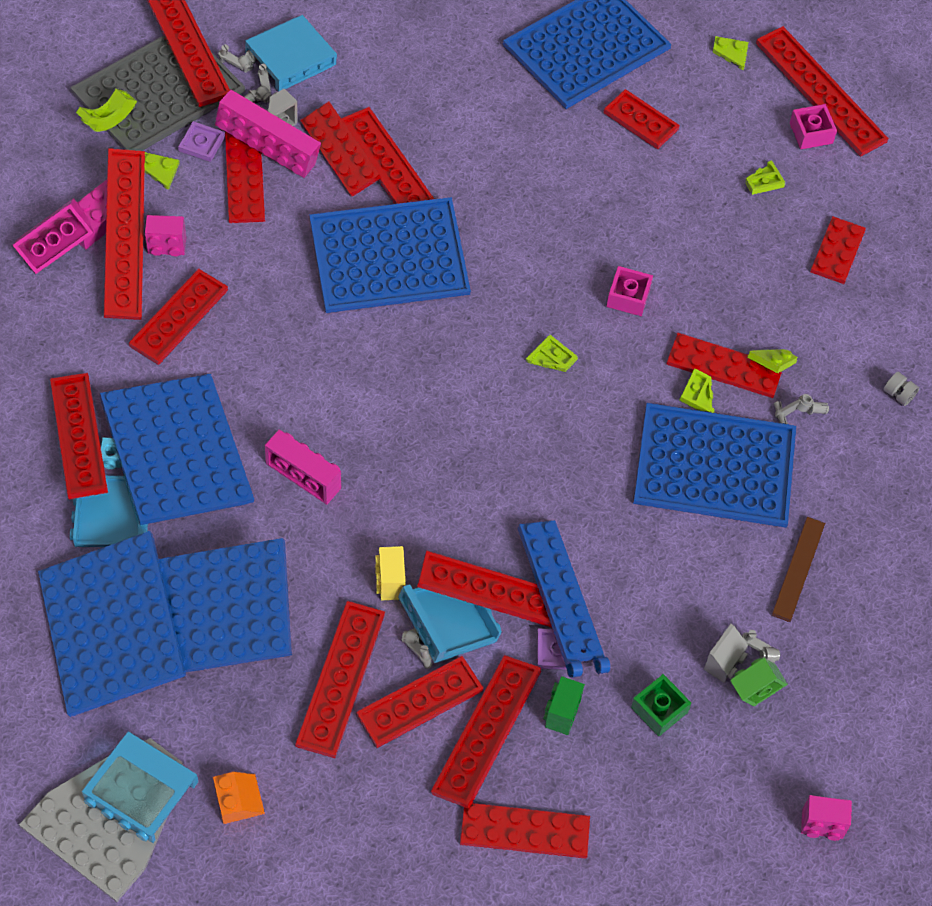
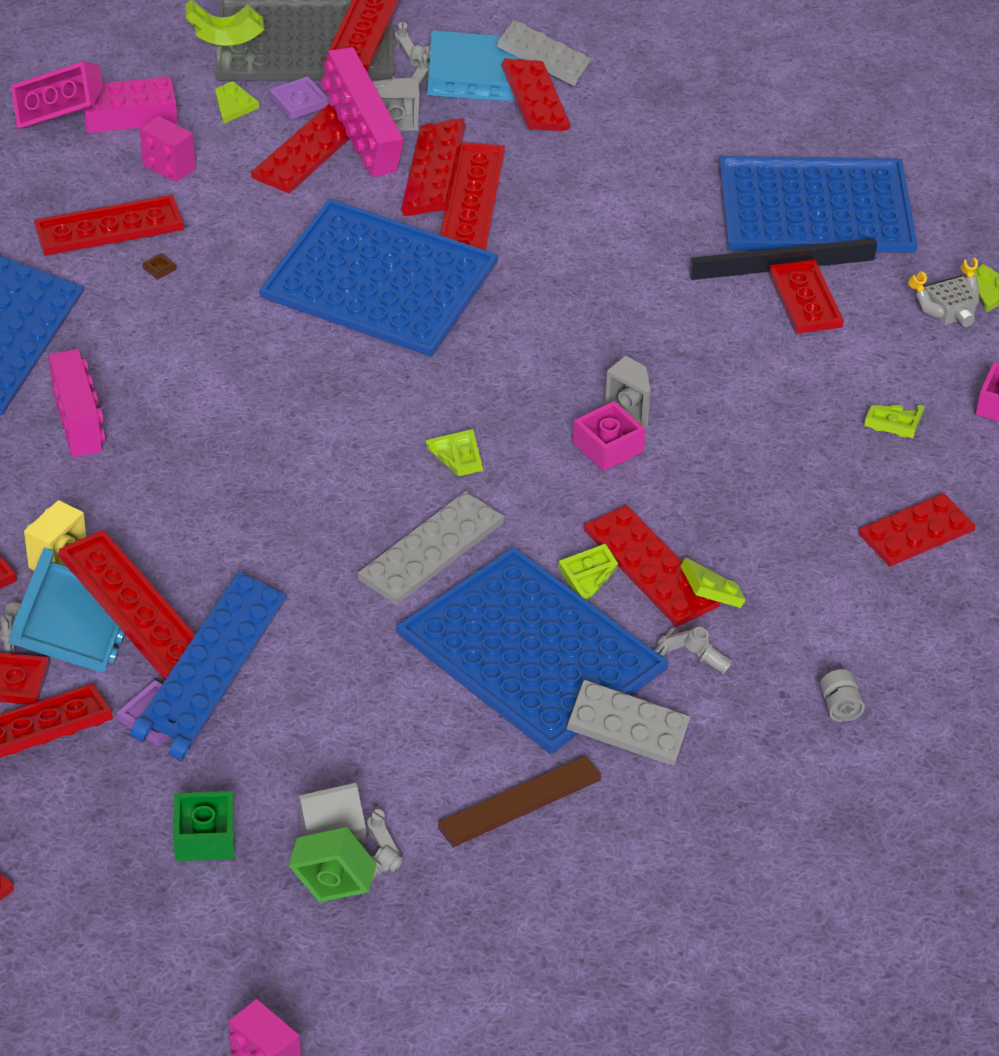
camera: 40 degrees right, 15 degrees down
(124, 234) = (119, 129): red plate -> none
(240, 328) = (159, 266): none -> reddish brown tile
(327, 18) = (535, 45): none -> light grey plate
(353, 55) = (535, 94): none -> red plate
(563, 705) = (96, 759): green brick -> none
(597, 432) = (430, 548): none -> light grey plate
(605, 99) = (759, 261): none -> black tile
(617, 251) = (630, 388): none -> light grey slope
(723, 72) = (950, 298): none -> light grey torso
(812, 480) = (628, 722): none -> light grey plate

